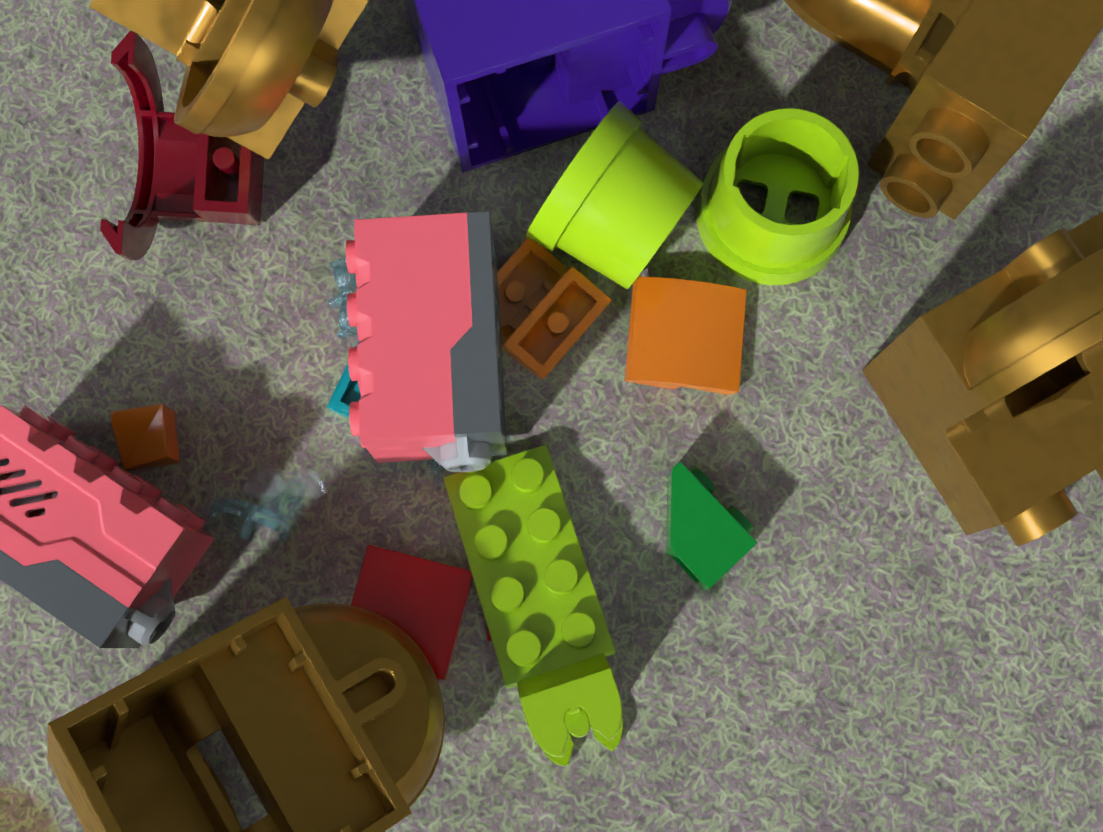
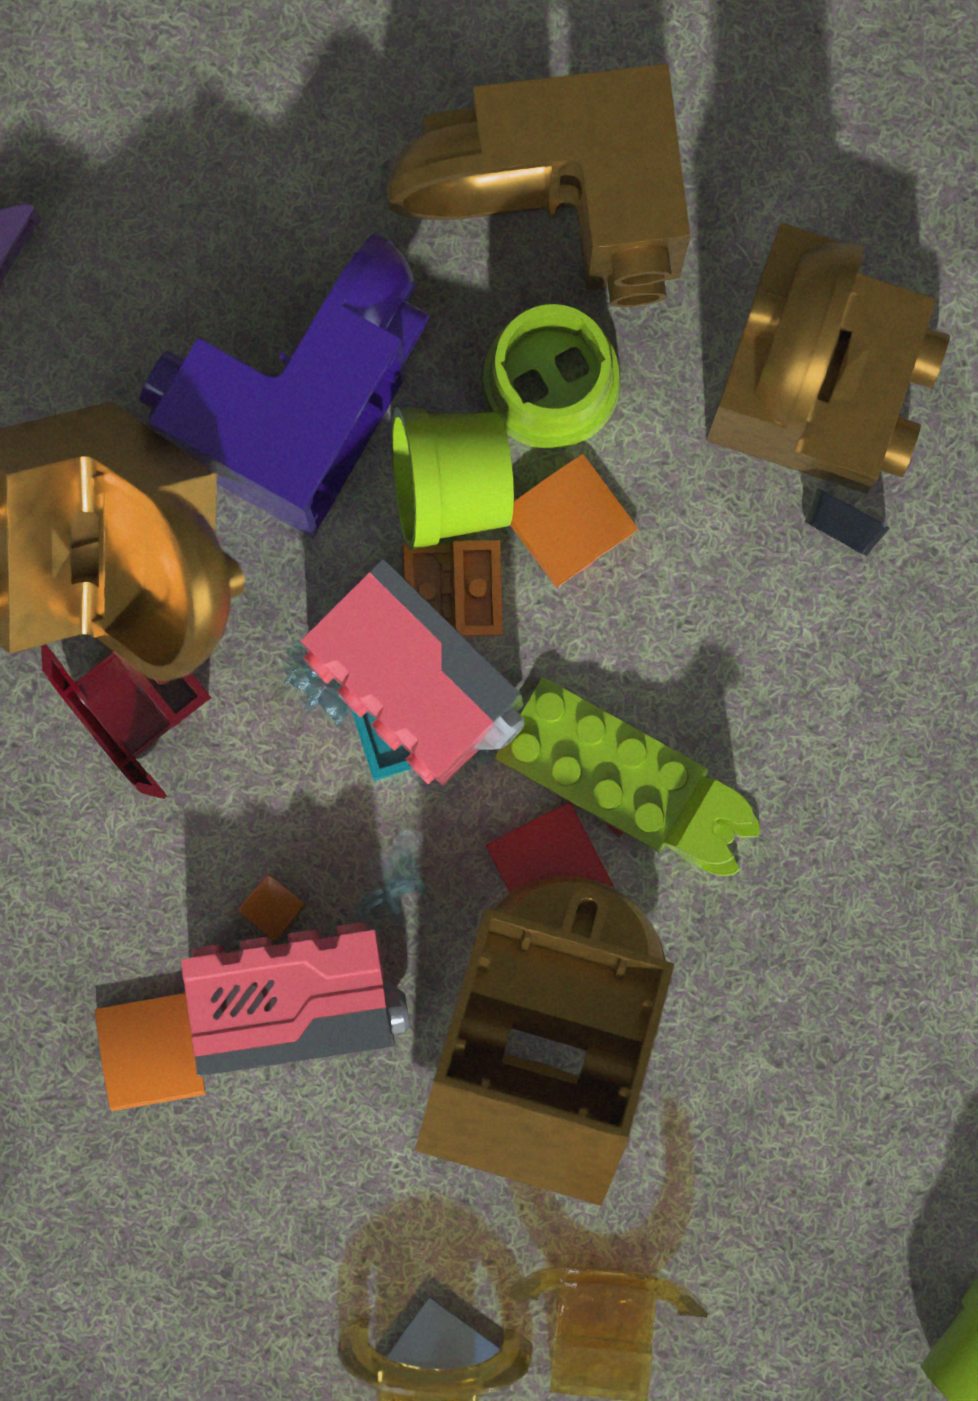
camera: 45 degrees left, 5 degrees up
(700, 531) = (693, 645): green slope -> none
(929, 541) = (844, 522): none -> black piece

